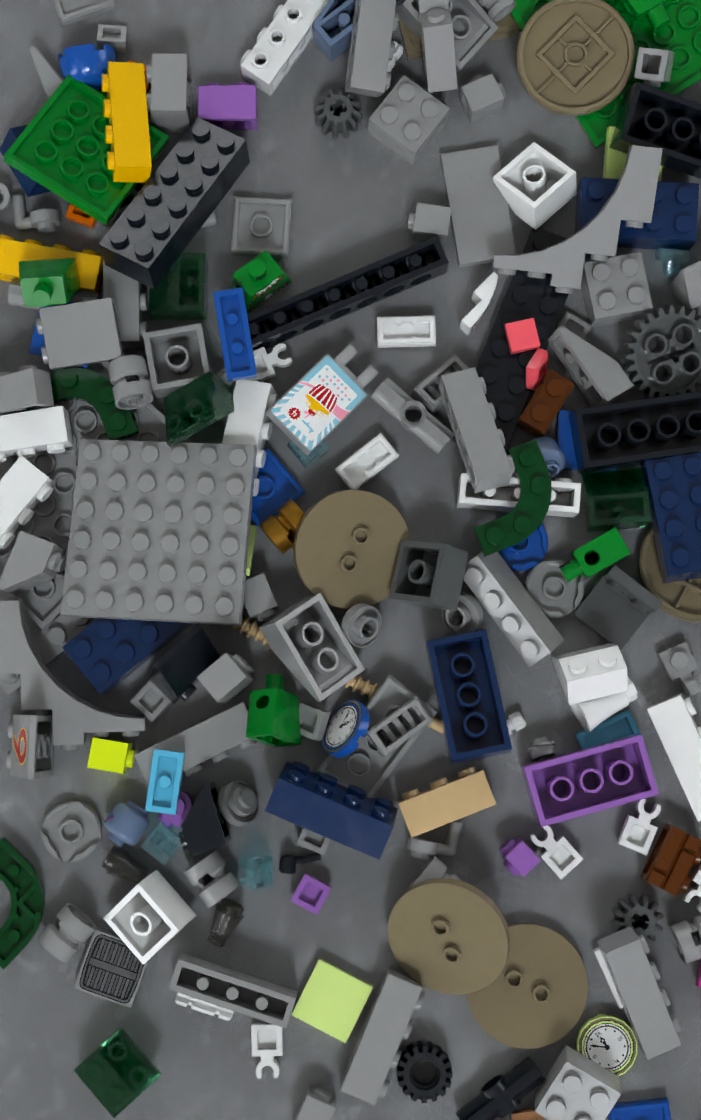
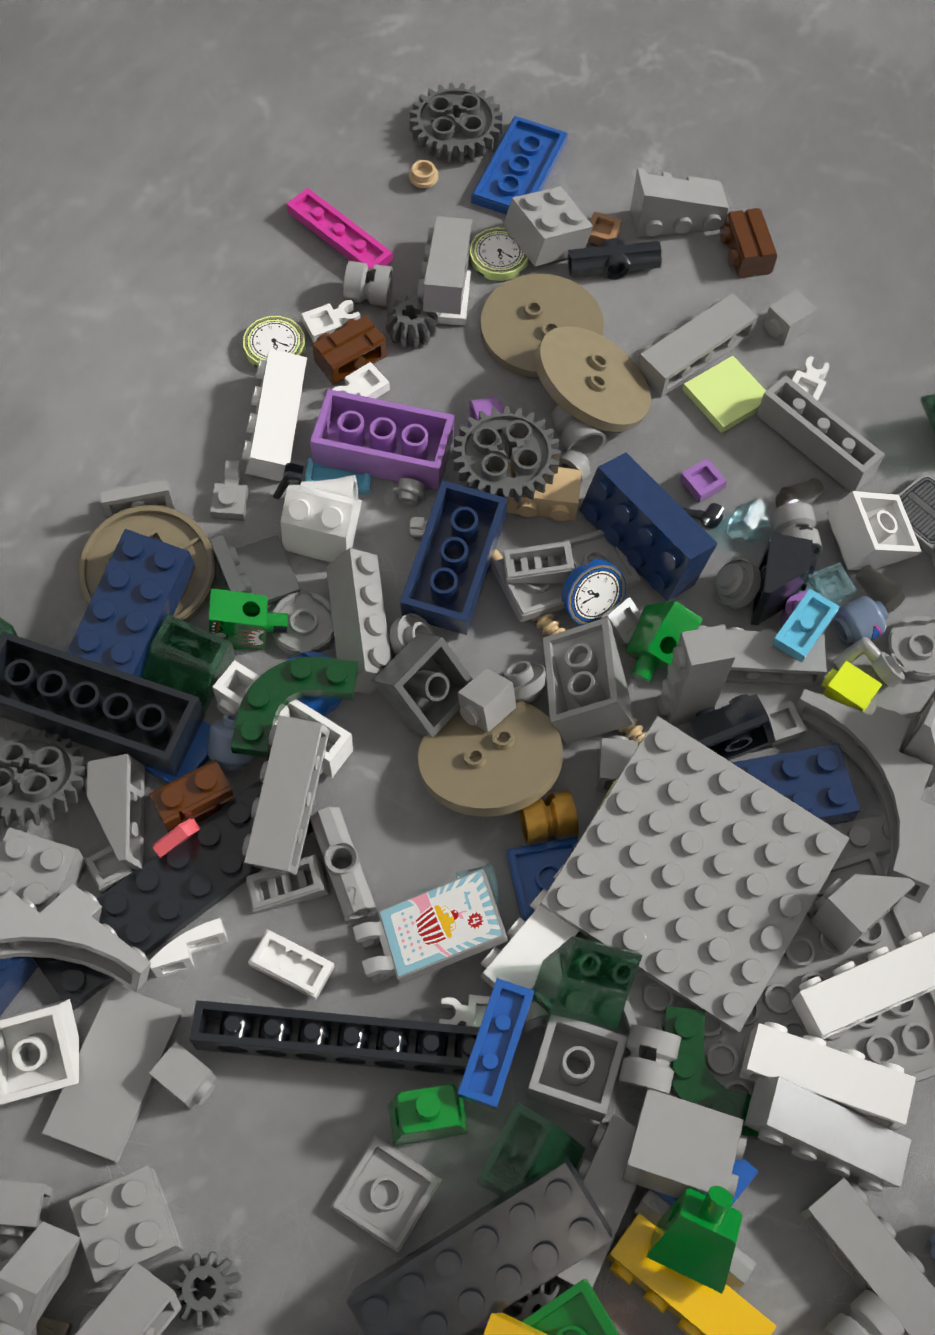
camera: 155 degrees left, 20 degrees down
(91, 792) = (887, 666): none -> light grey plate
(367, 462) = (421, 843): white plate -> none
(377, 587) = (487, 700): none -> light grey brick
(437, 1085) = (671, 291): black tyre -> none
(457, 828) = (535, 448): none -> dark grey gear
(522, 336) = (168, 880): coral tile -> none
(558, 854) = (450, 399): white plate -> none
(639, 701) = (291, 474): none -> black hand

